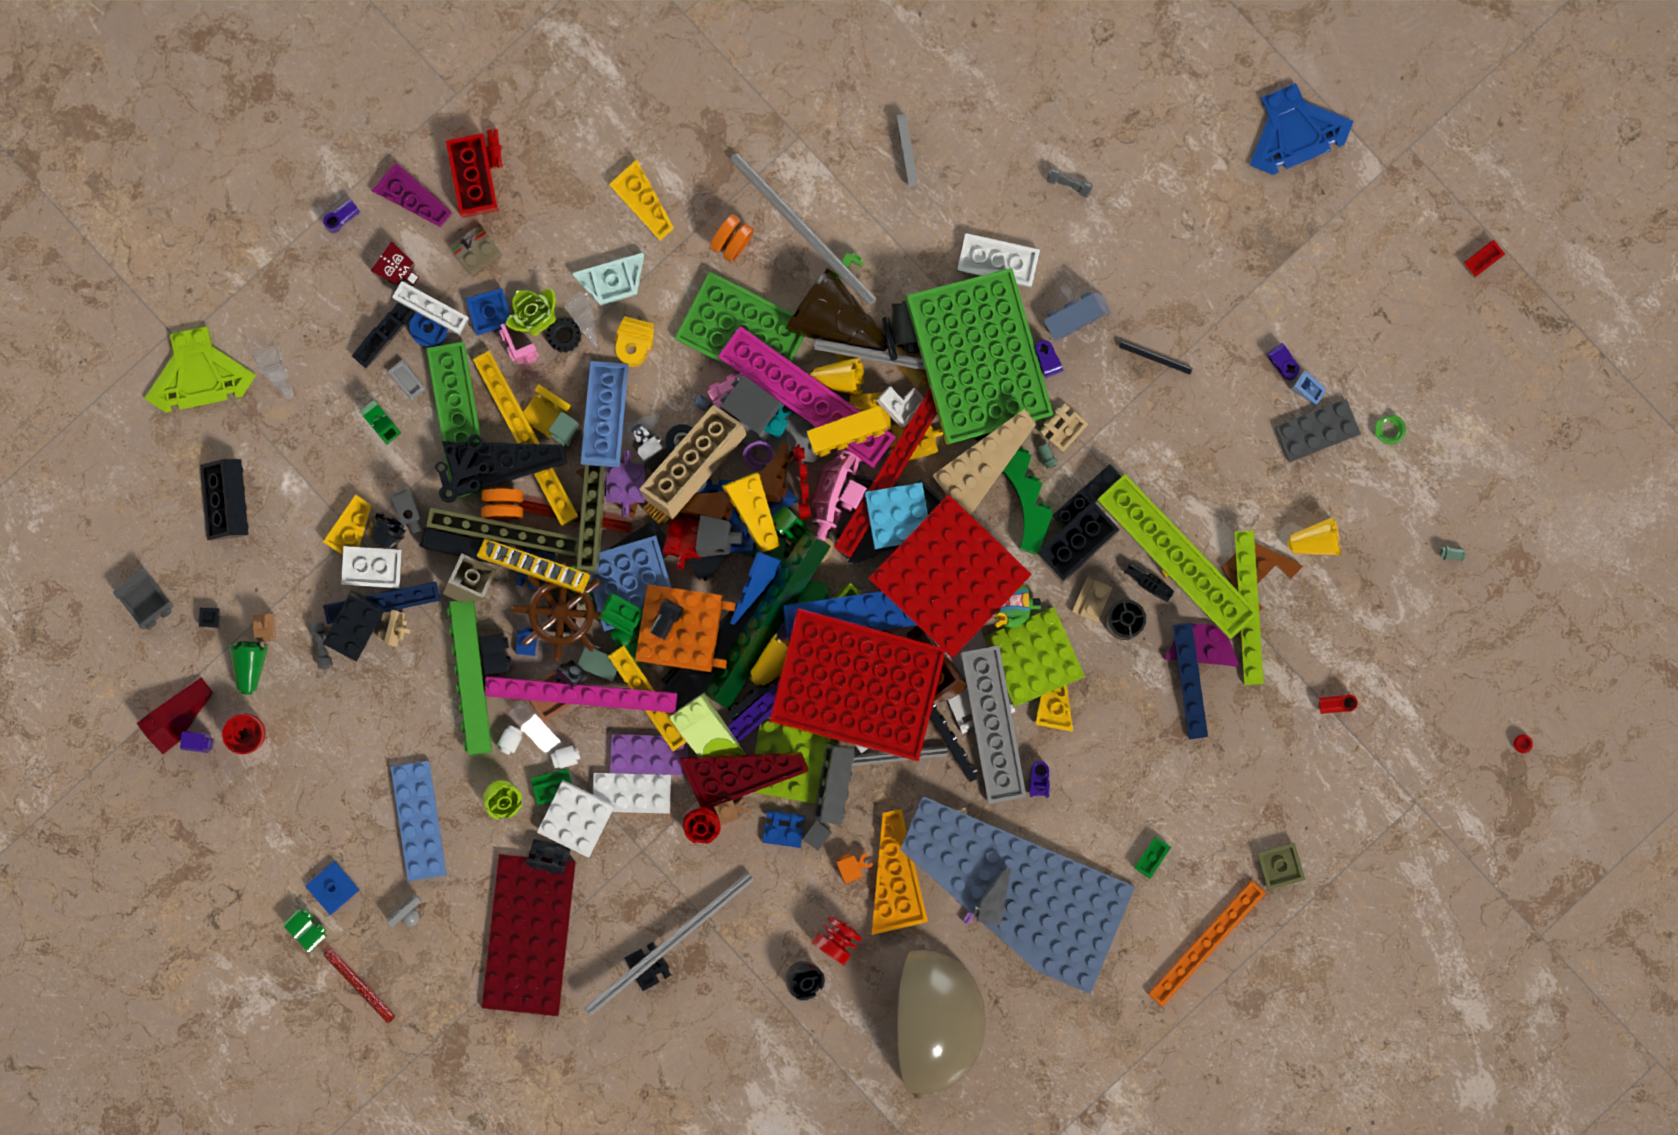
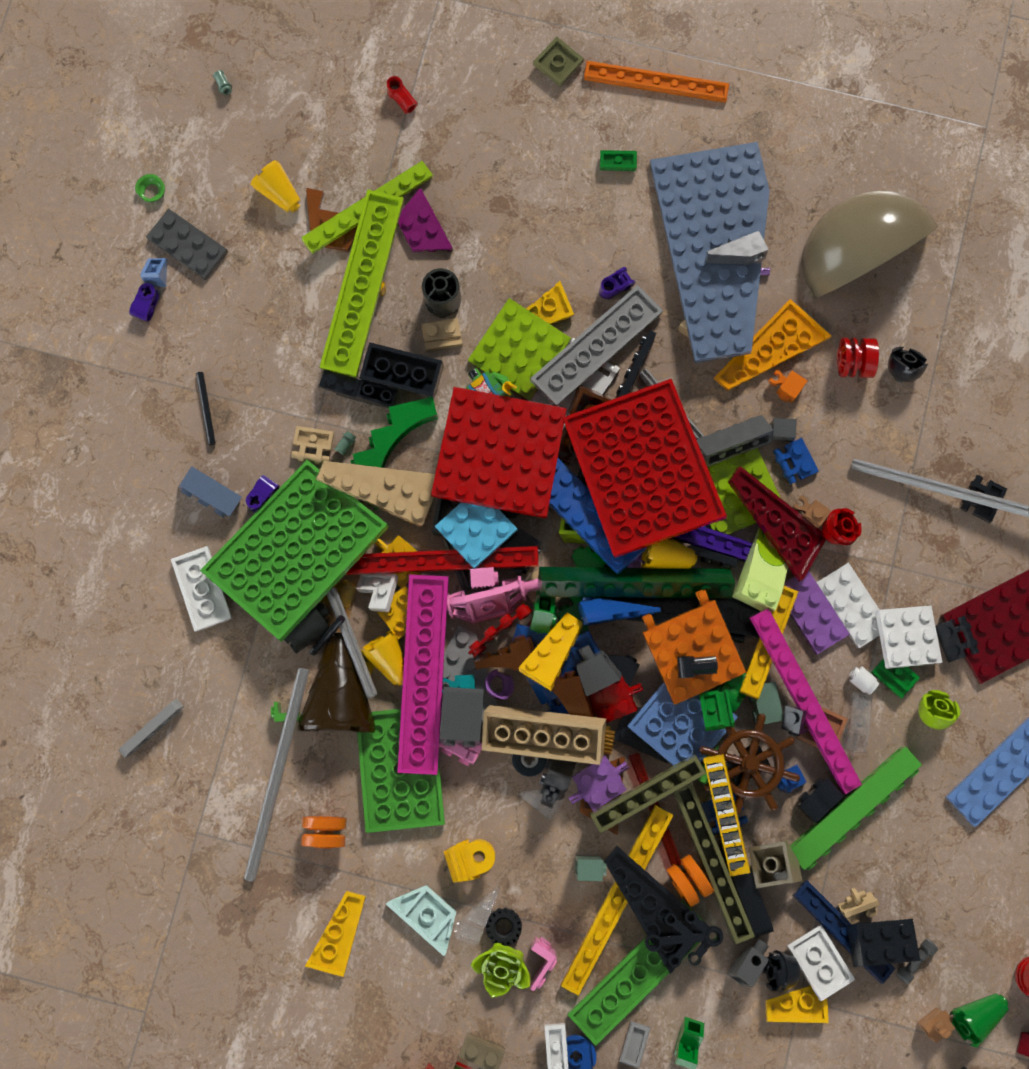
camera: 125 degrees left, 5 degrees down
(488, 311) = (526, 1010): blue plate -> none
(510, 740) = (883, 737): white brick -> none
(544, 410) = (581, 898): yellow bracket -> none
(604, 414) = (552, 841): medium blue plate -> none
(702, 402) = (485, 763): sand blue plate -> none
(847, 430) = (431, 617): yellow brick -> none
(1056, 177) = (98, 587): dark grey piece -> none
(1150, 582) = (397, 296): black hinge -> none
(1190, 681) = (457, 216): dark blue plate -> none

